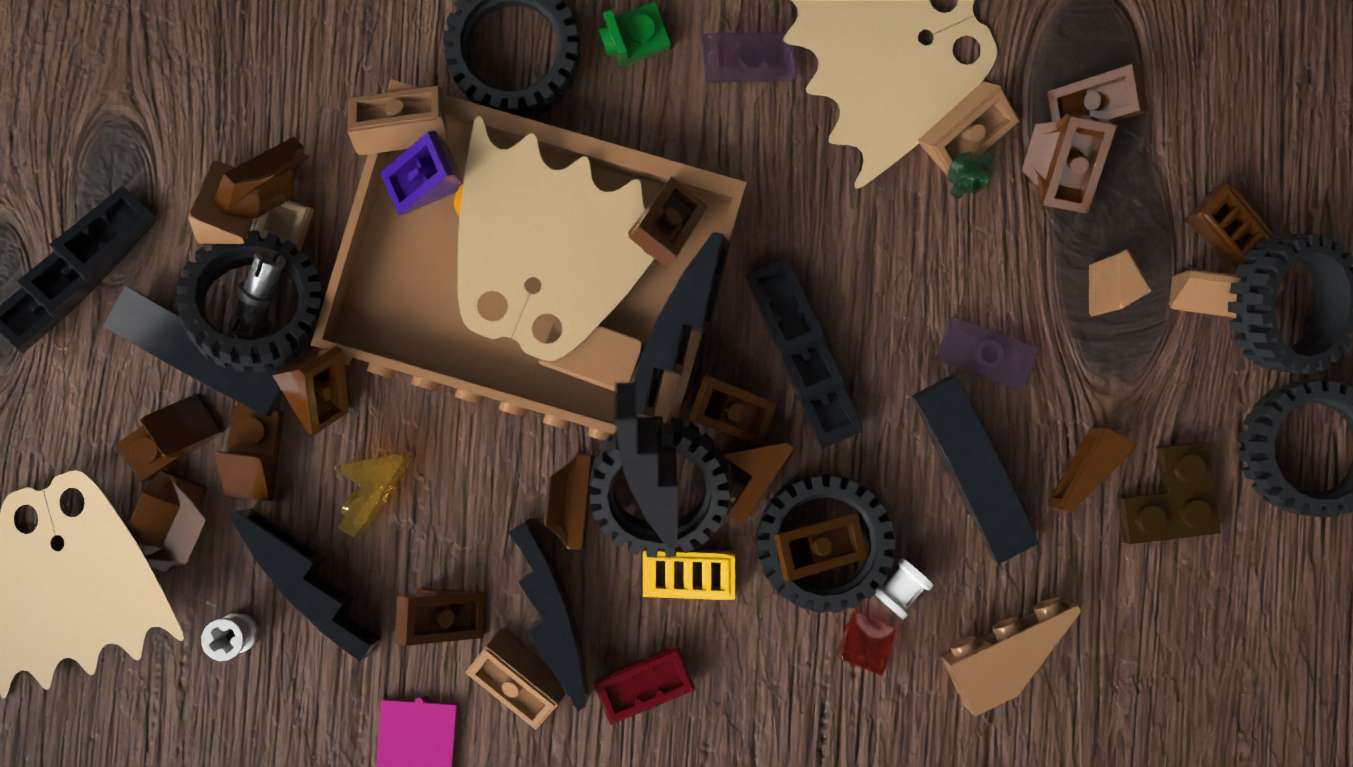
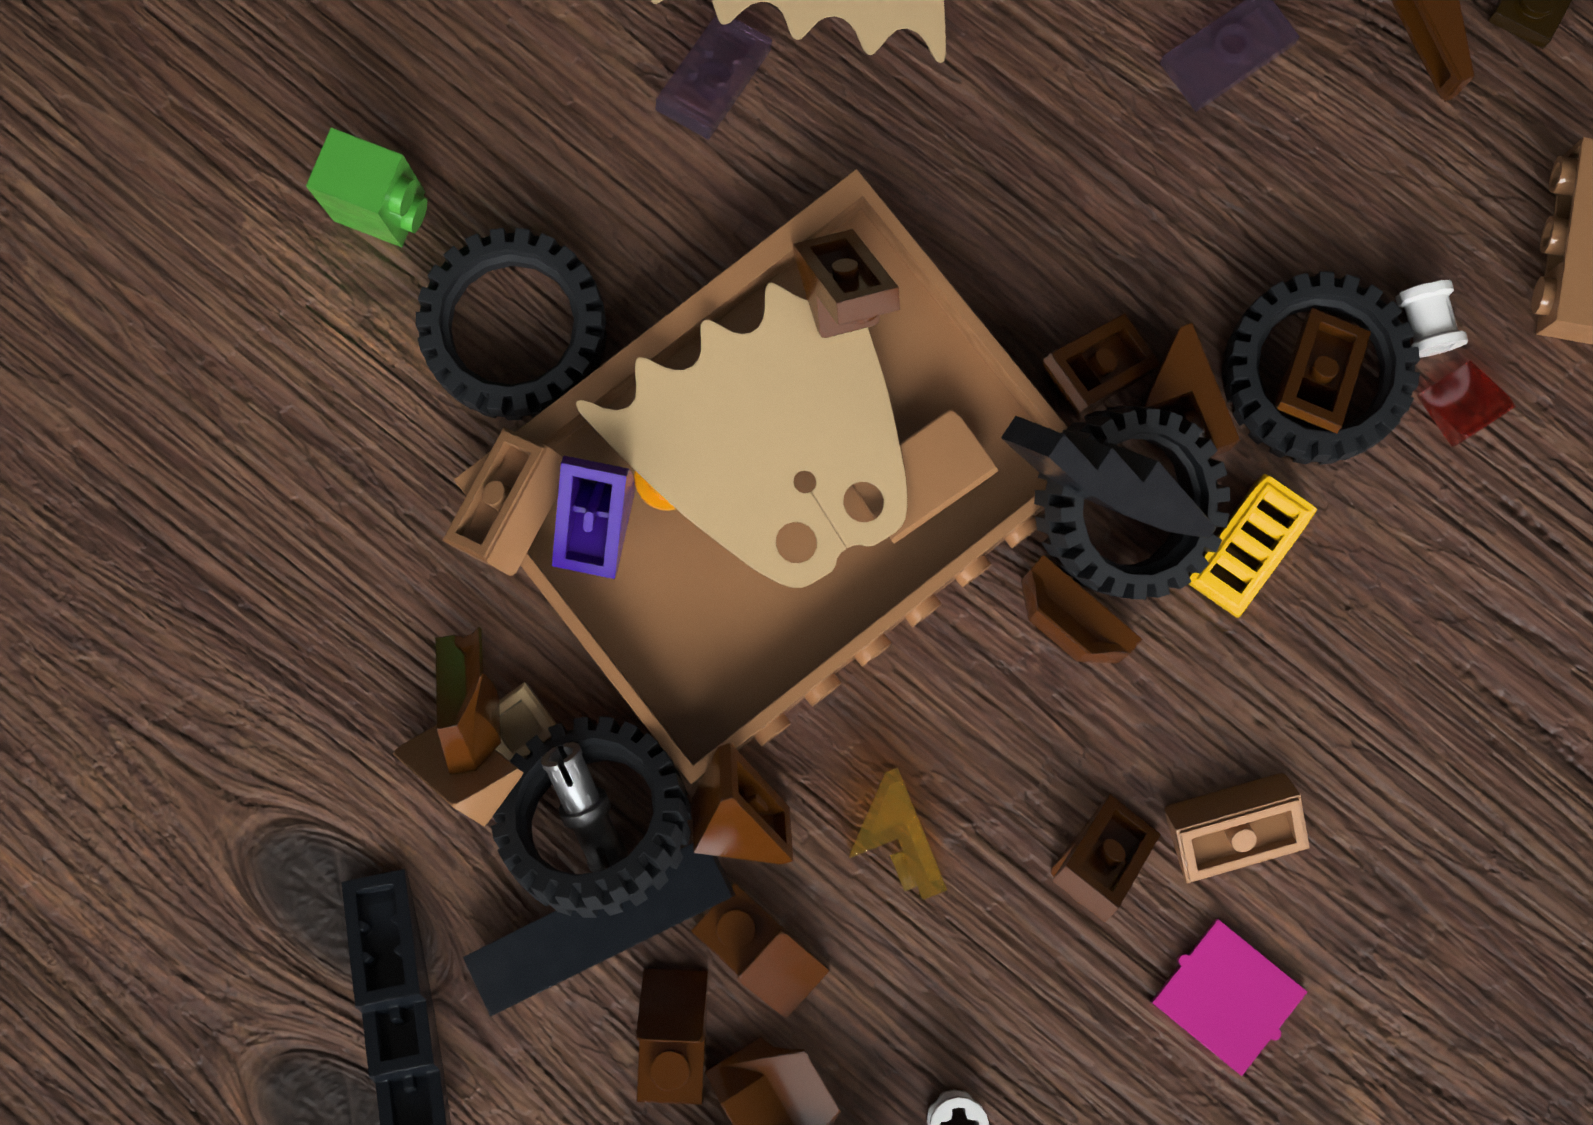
camera: 55 degrees left, 5 degrees down
(294, 572) = (931, 993): black slope -> none
(556, 630) = (1208, 735): black slope -> none
(634, 34) = (594, 182): green bracket -> none
(644, 684) = (1342, 683): dark red plate -> none
(687, 309) = (959, 328): black slope -> none
(804, 353) = (1088, 244): black slope -> none
(975, 469) = (1351, 146): black slope -> none

